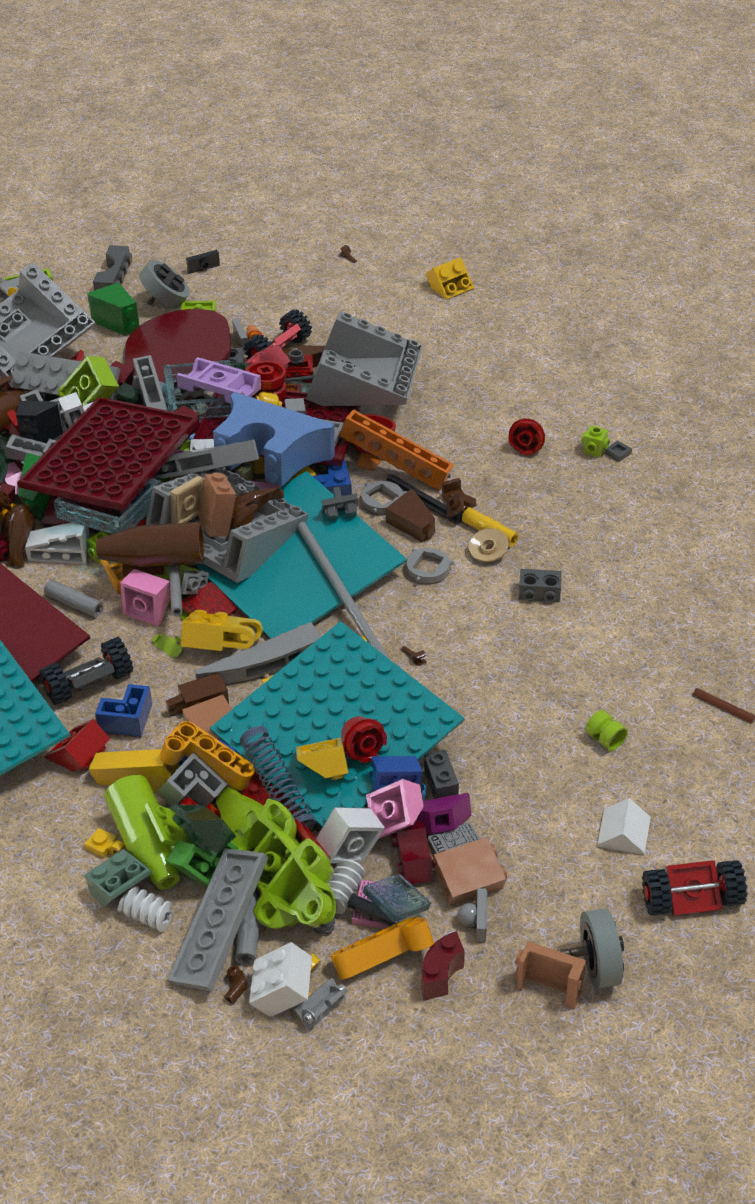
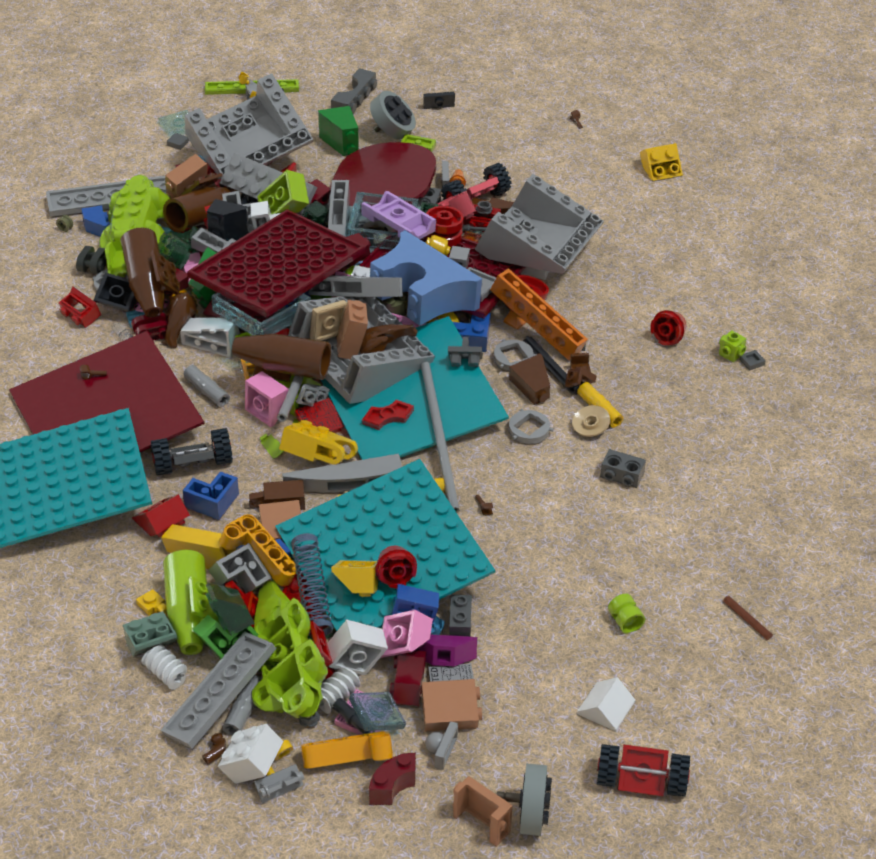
camera: 15 degrees right, 0 degrees up
(274, 588) = (380, 416): none -> red tile

